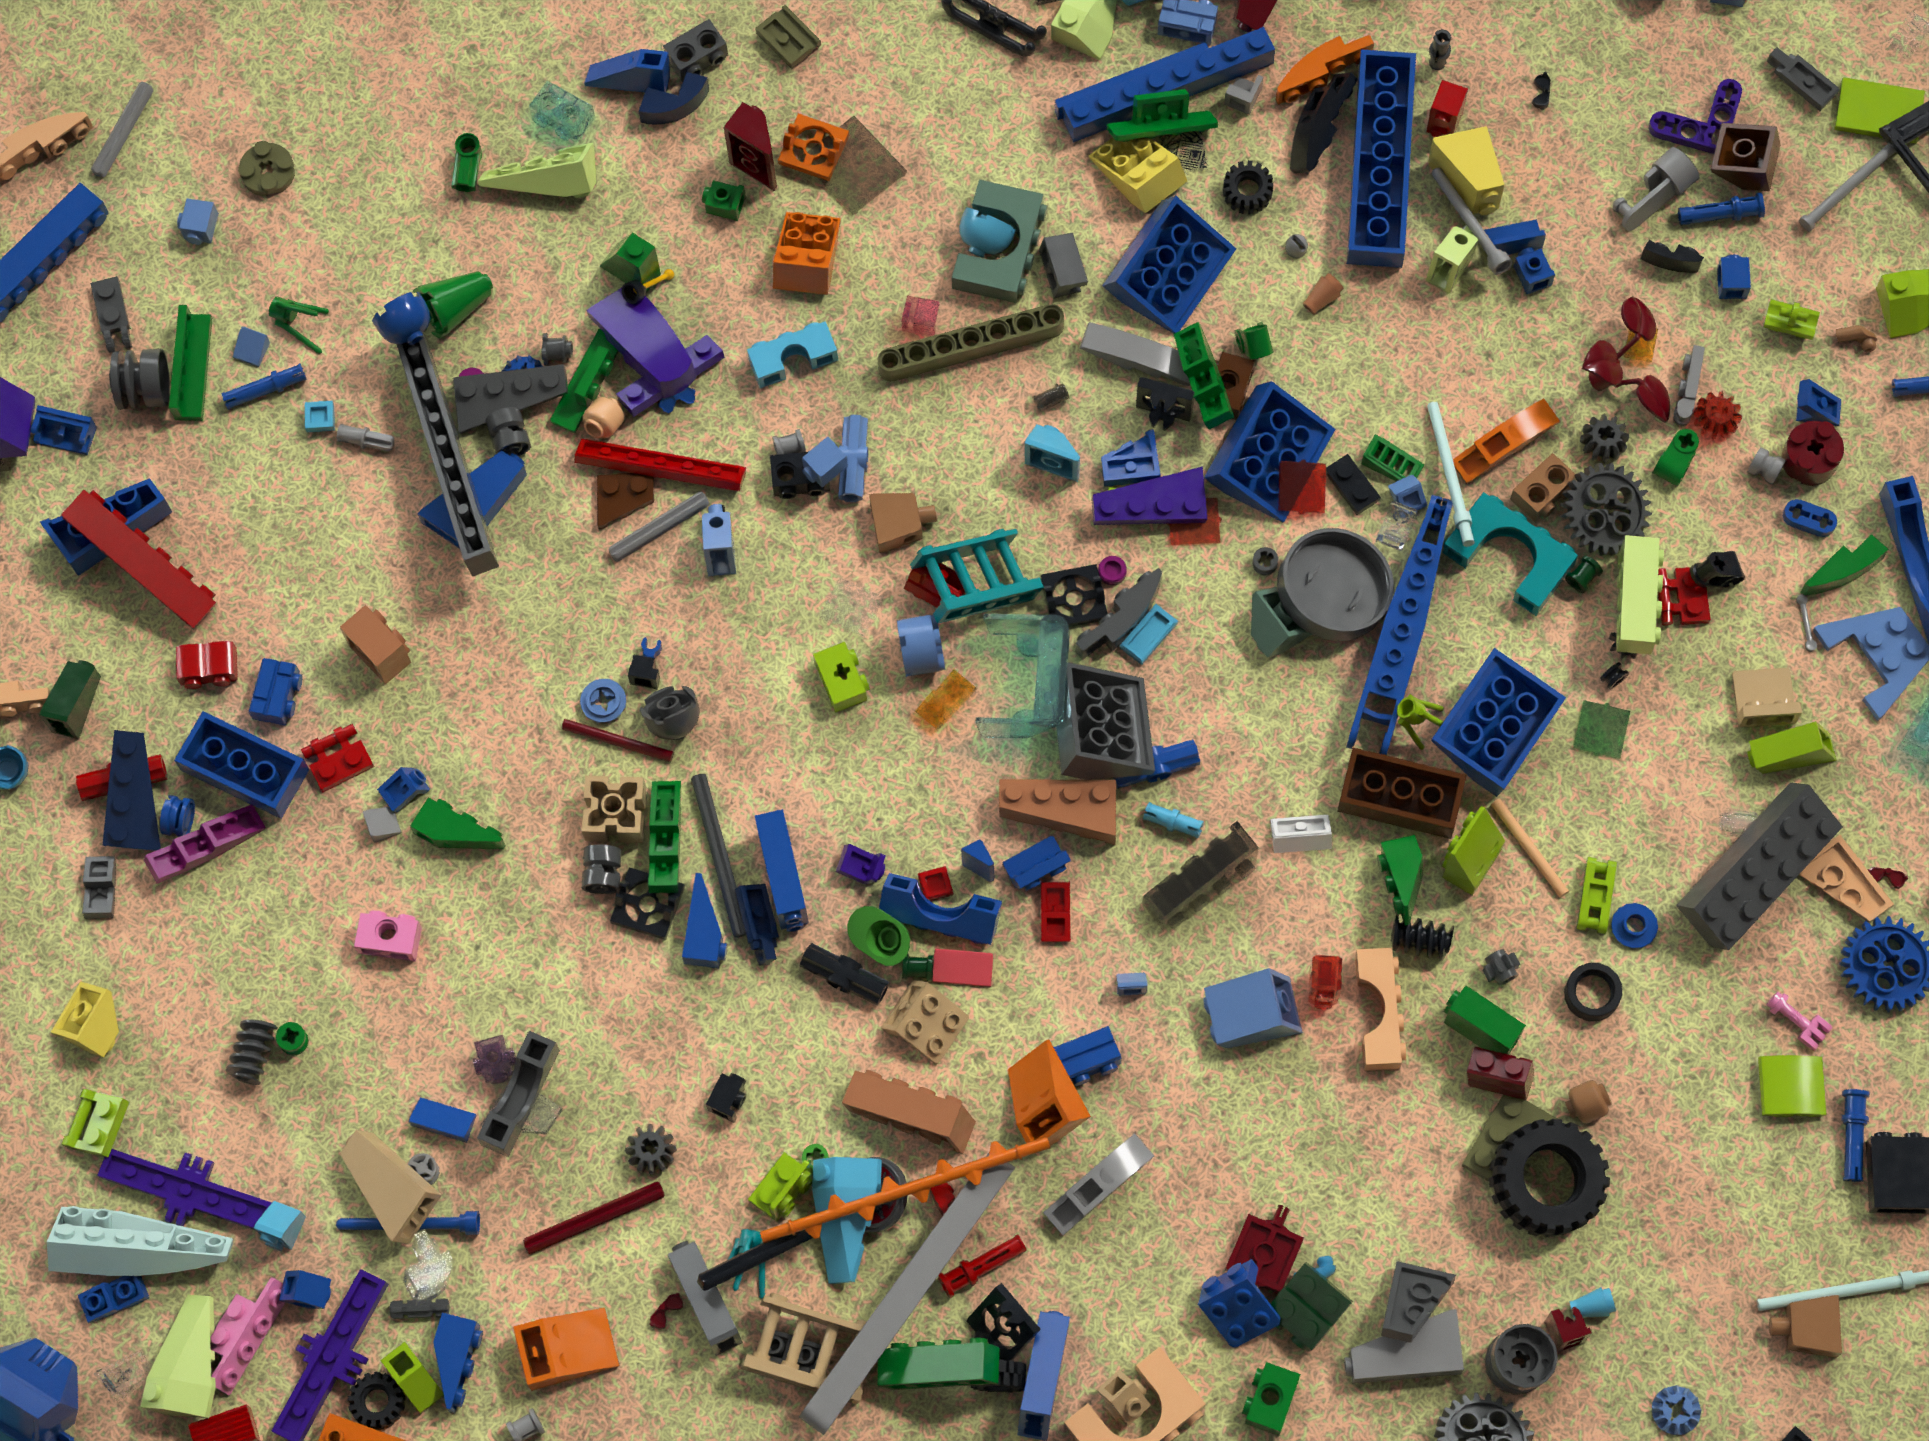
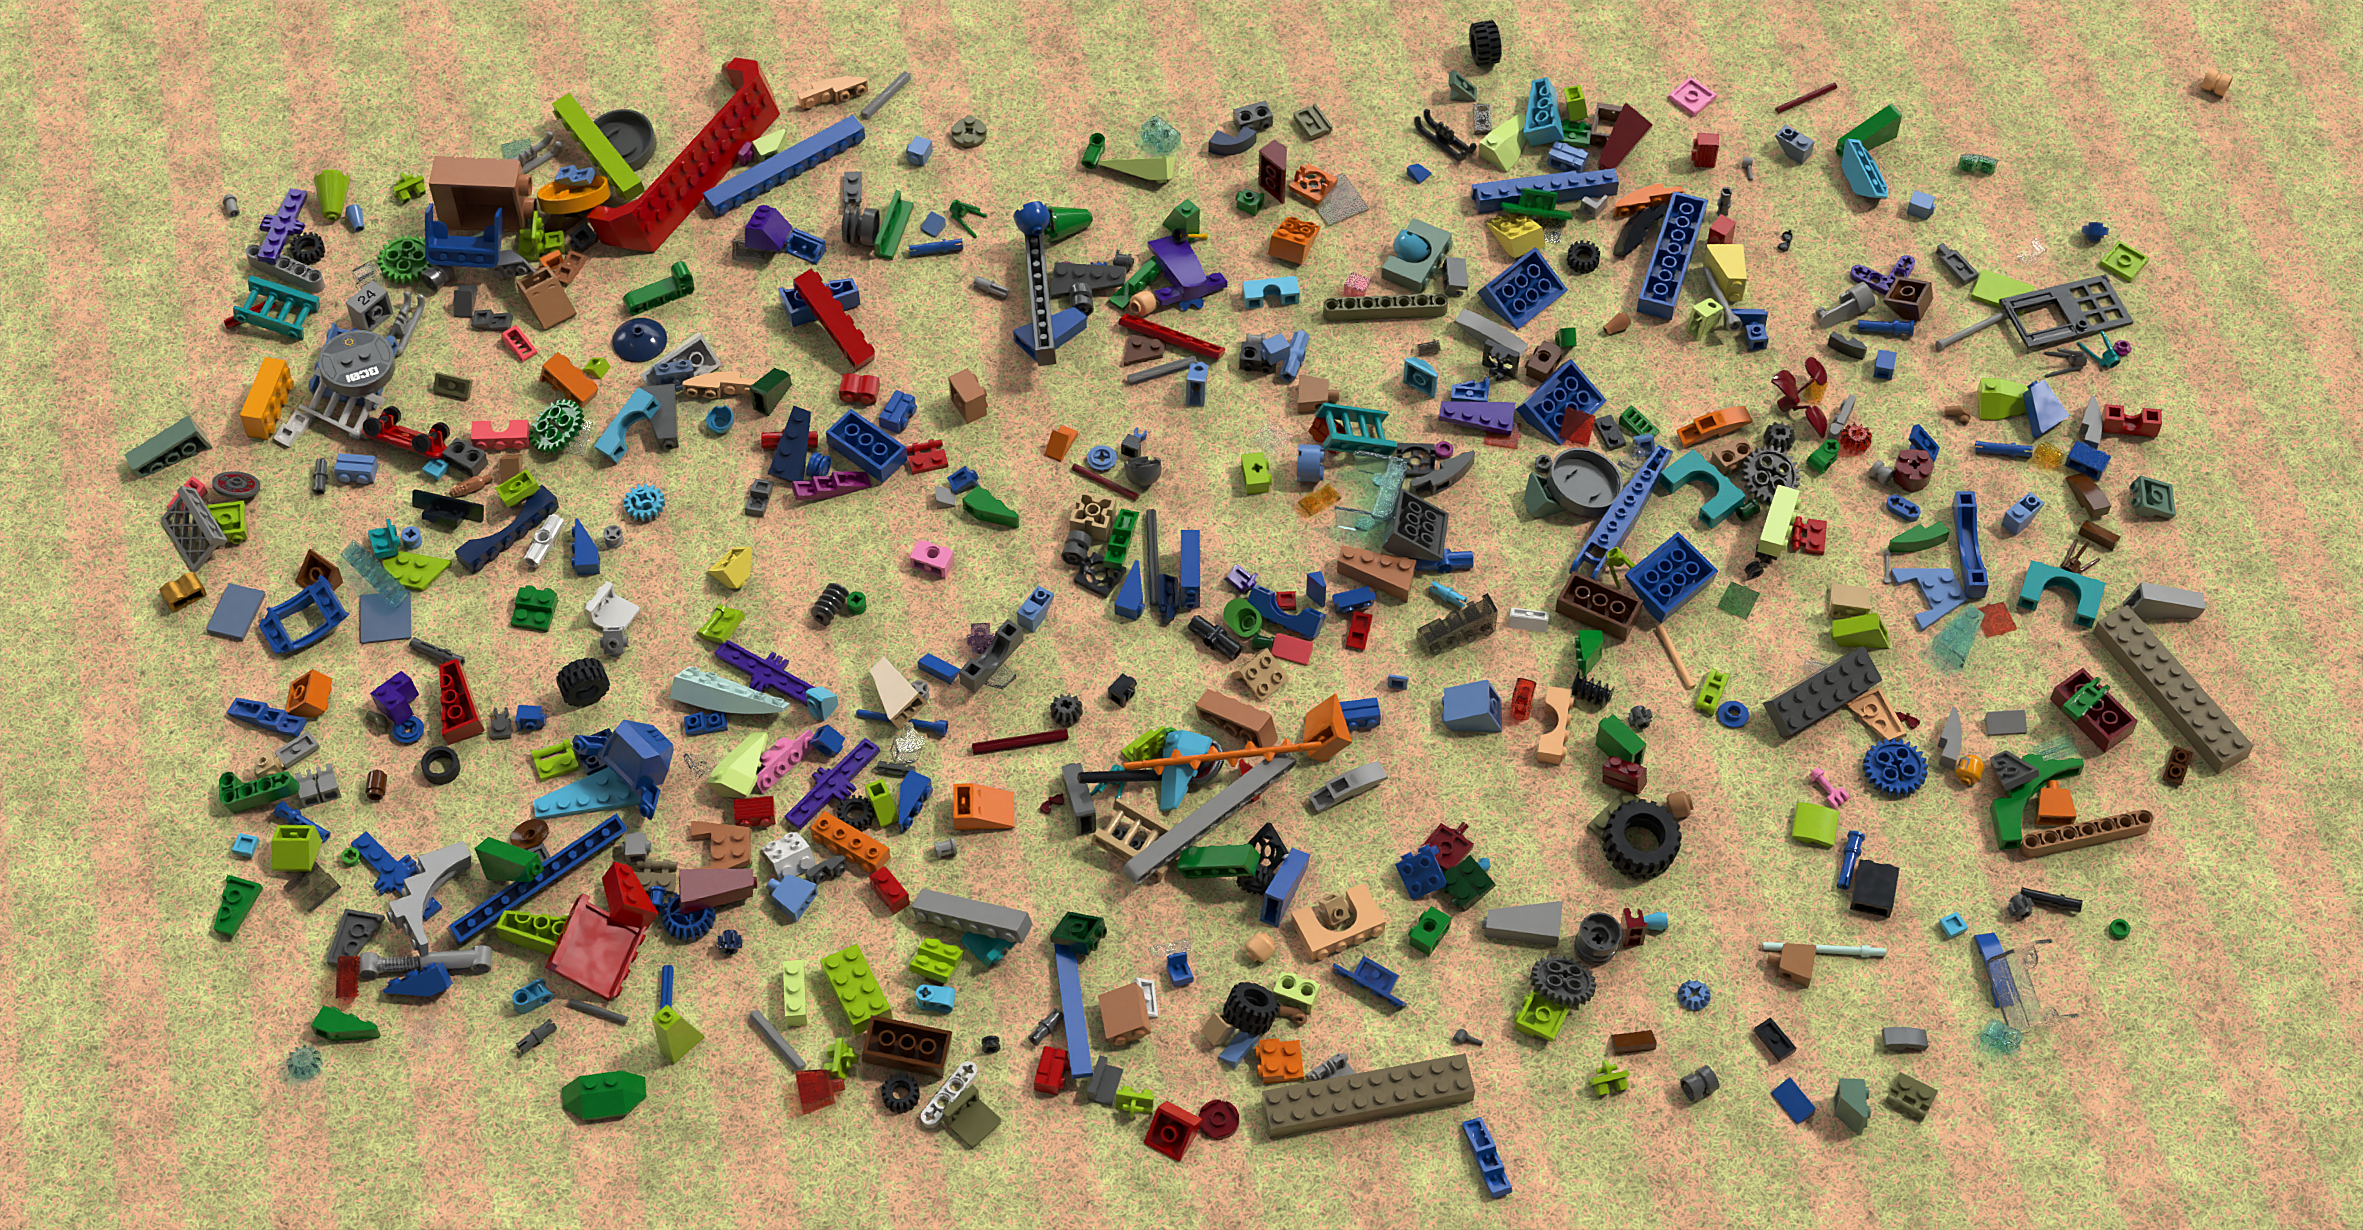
camera: 10 degrees right, 15 degrees down
(319, 416) = (965, 269): medium azure plate -> none
(535, 687) = (1060, 442): none -> orange slope
(564, 989) = (1035, 609): none -> medium blue slope
(631, 71) = (1210, 121): blue slope -> none
(967, 91) = (1418, 172): none -> blue slope
(1013, 1246) = (1252, 819): red pin -> none
(1148, 634) = (1458, 490): medium azure tile -> none
(1203, 375) = (1528, 348): green slope -> none
(1293, 248) = (1604, 296): light grey hinge -> none
(1413, 1299) = (1536, 890): dark grey wing -> none
(1461, 517) = (1675, 458): light aqua bar -> none
(1473, 852) = (1636, 644): lime slope -> none
(1577, 1007) = (1697, 757): black tyre -> none
(1718, 570) = (1835, 523): black piece -> none
(1791, 319) = (1916, 393): lime hips -> none

